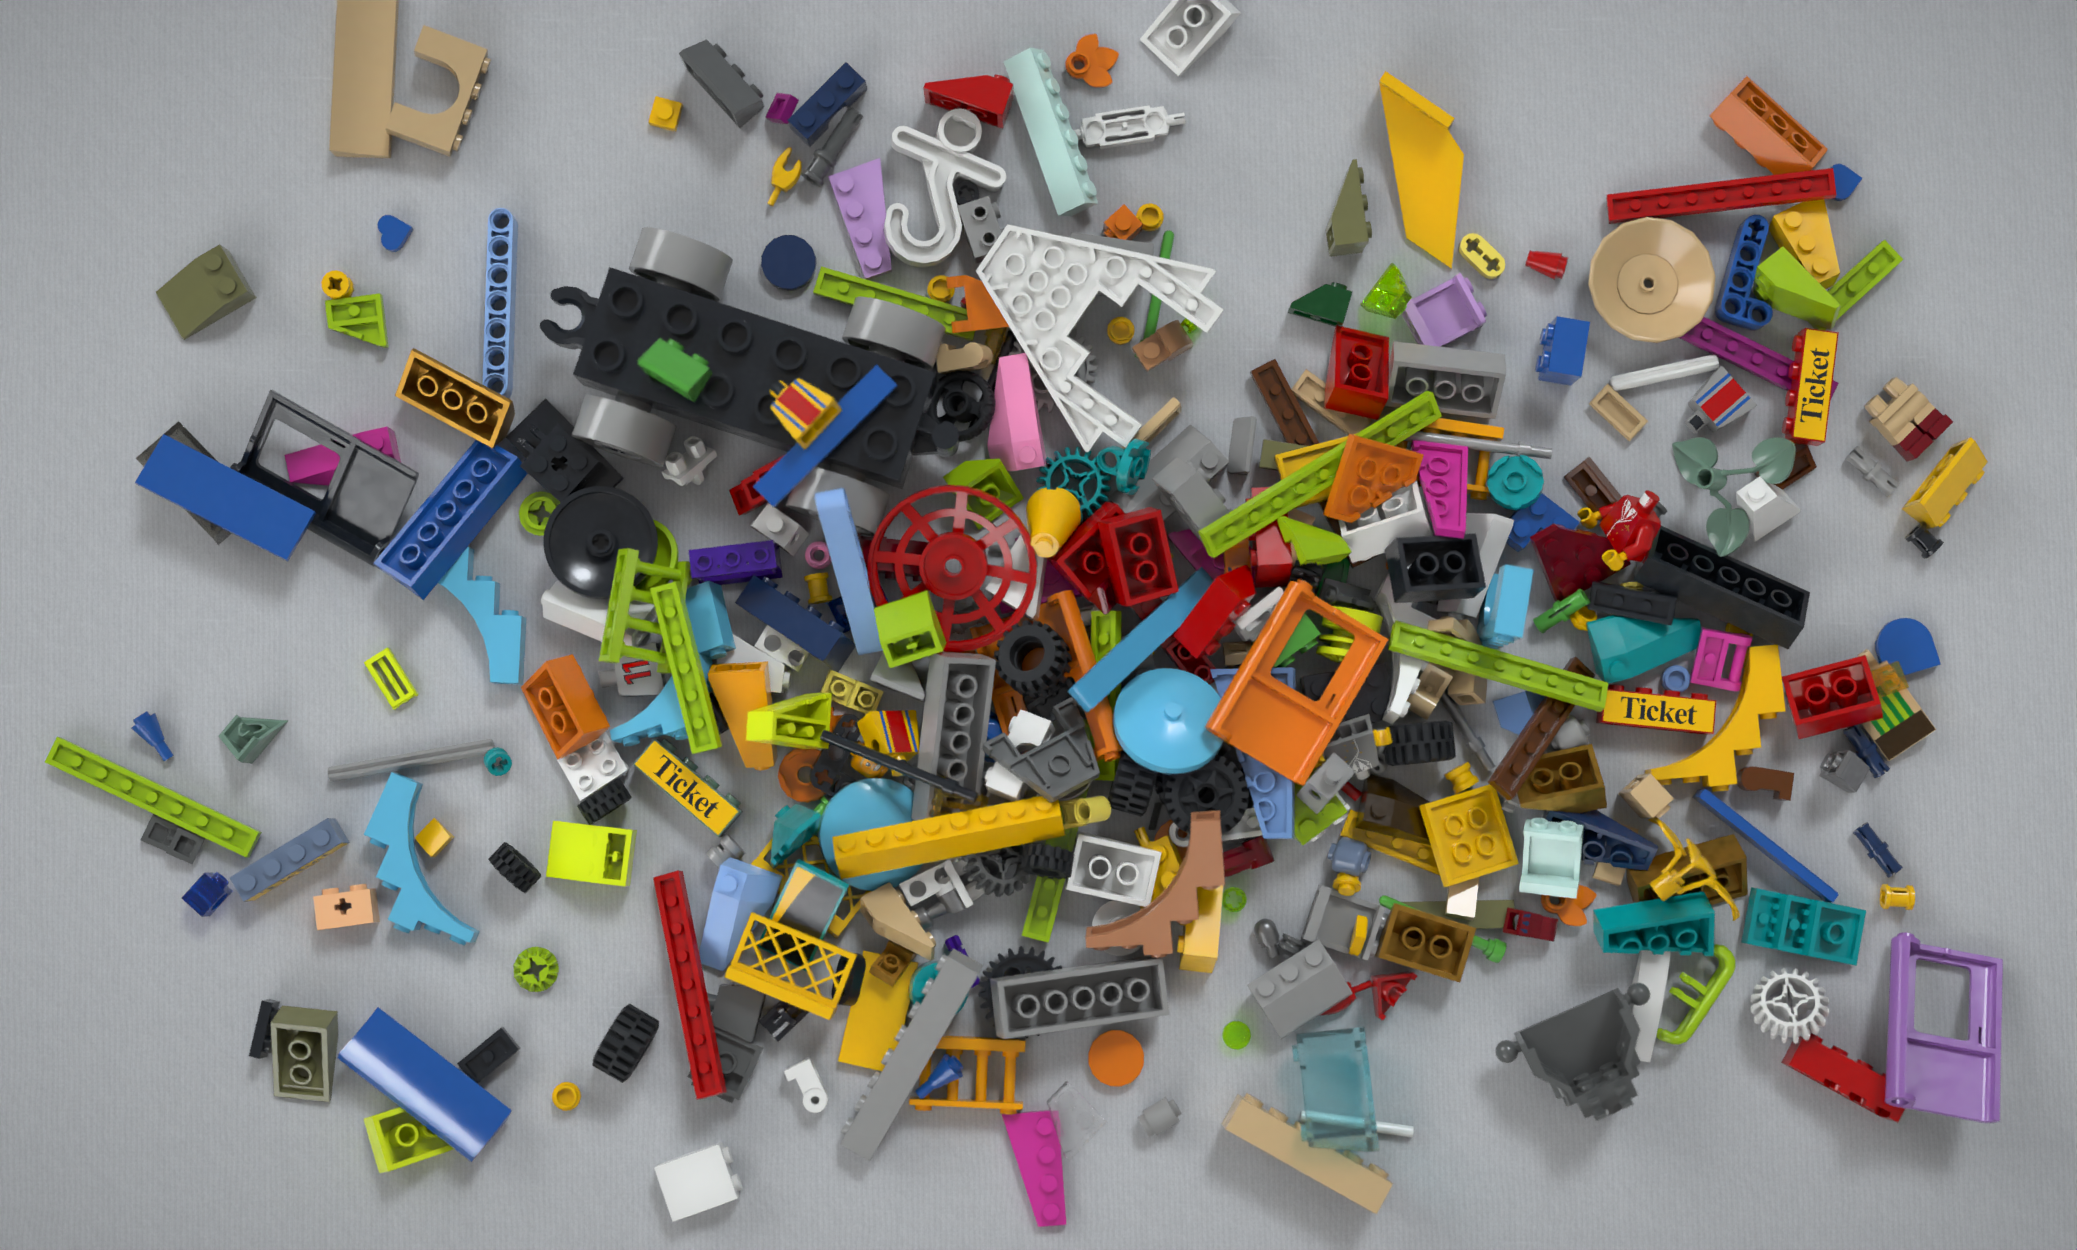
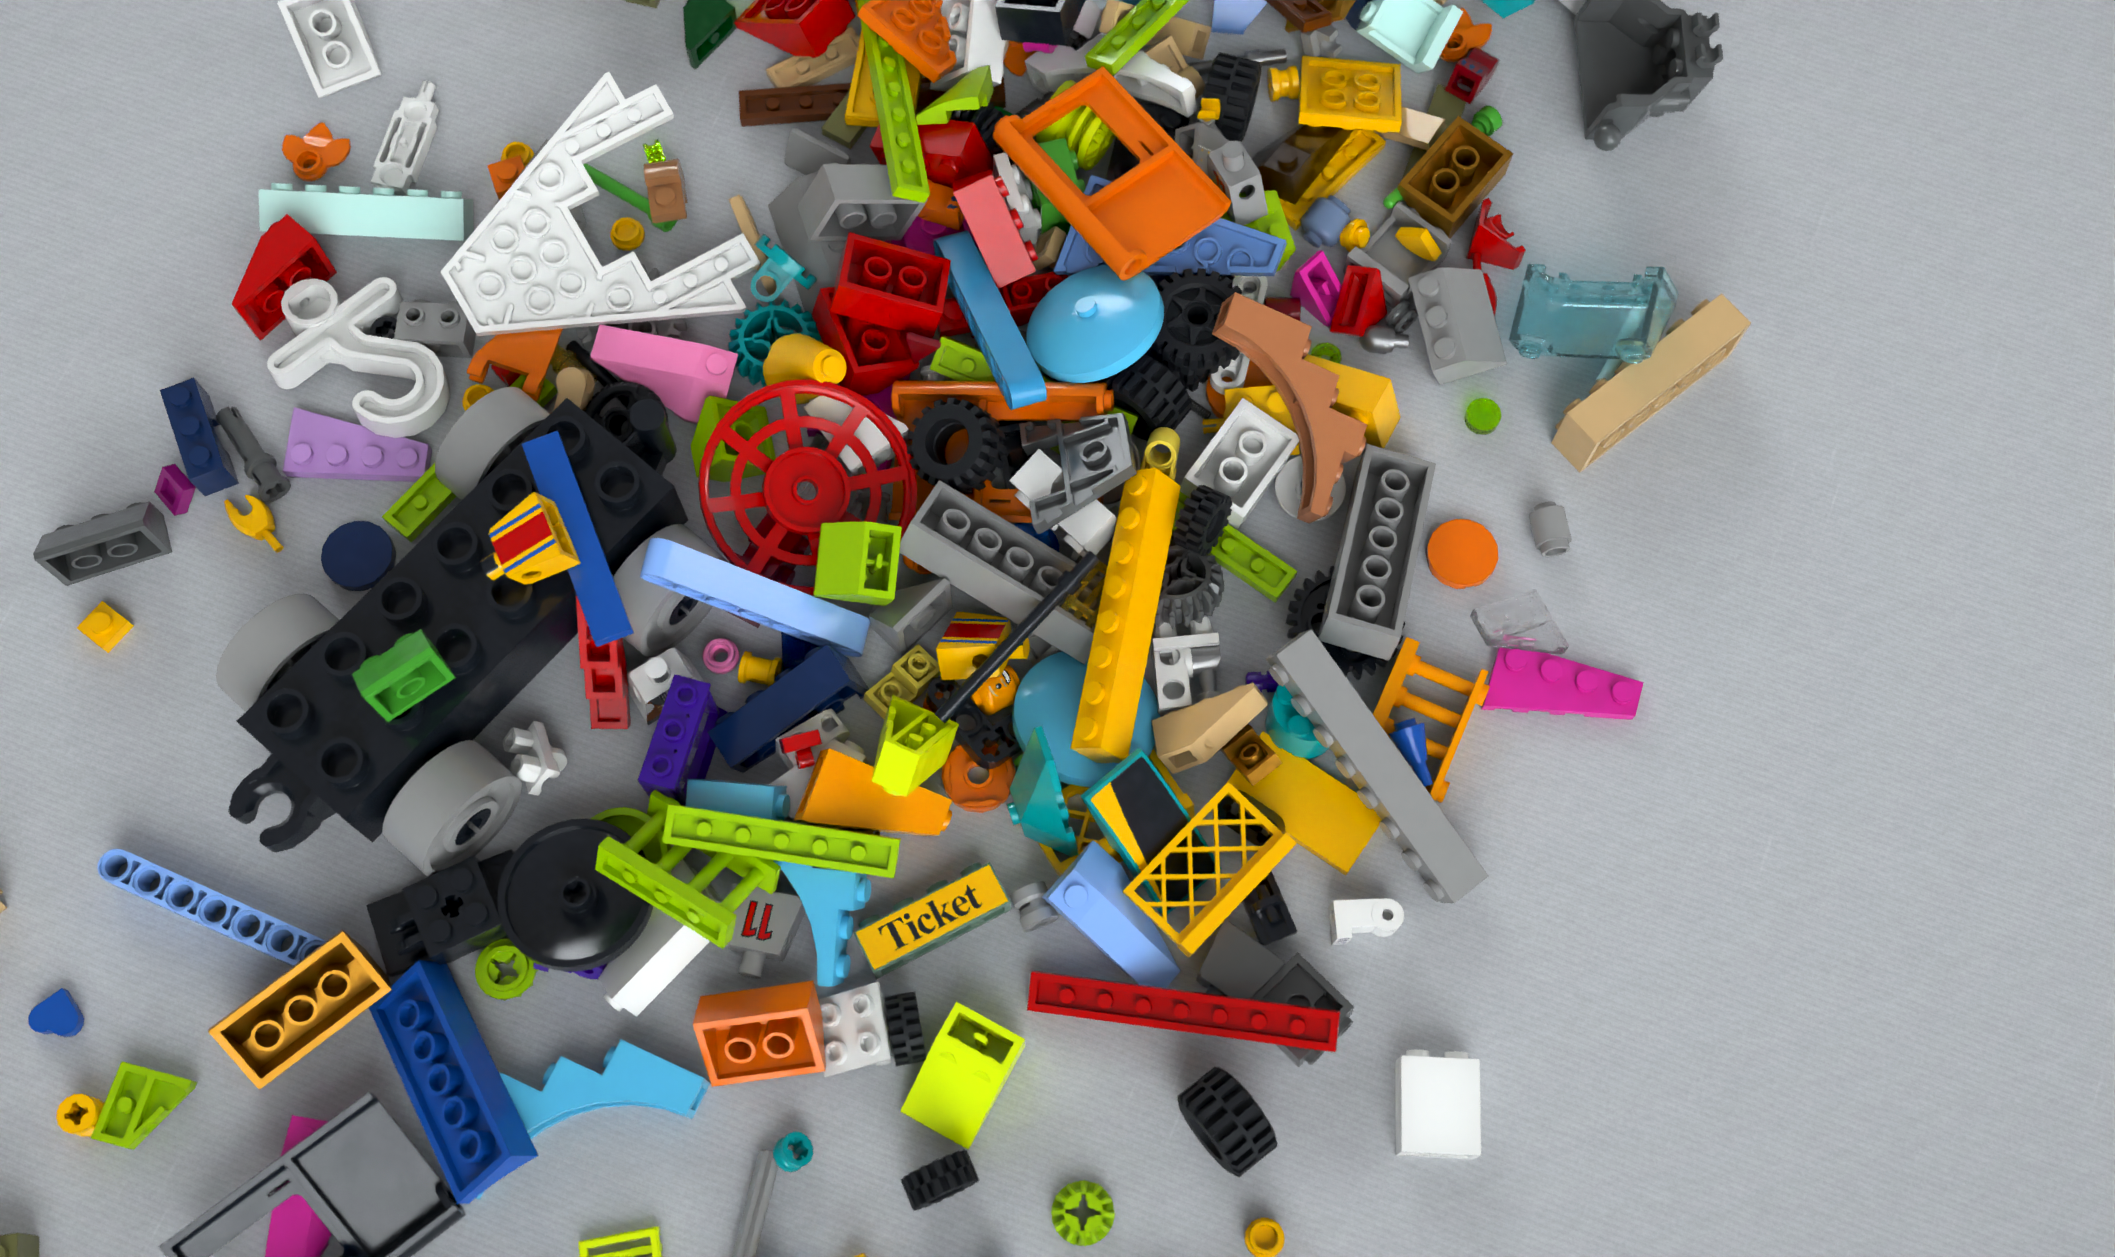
camera: 65 degrees left, 15 degrees down
(766, 646) = (801, 746): none -> red tile
(1287, 876) = (1317, 287): none -> dark pink slope
(1287, 908) = (1359, 301): none -> red slope

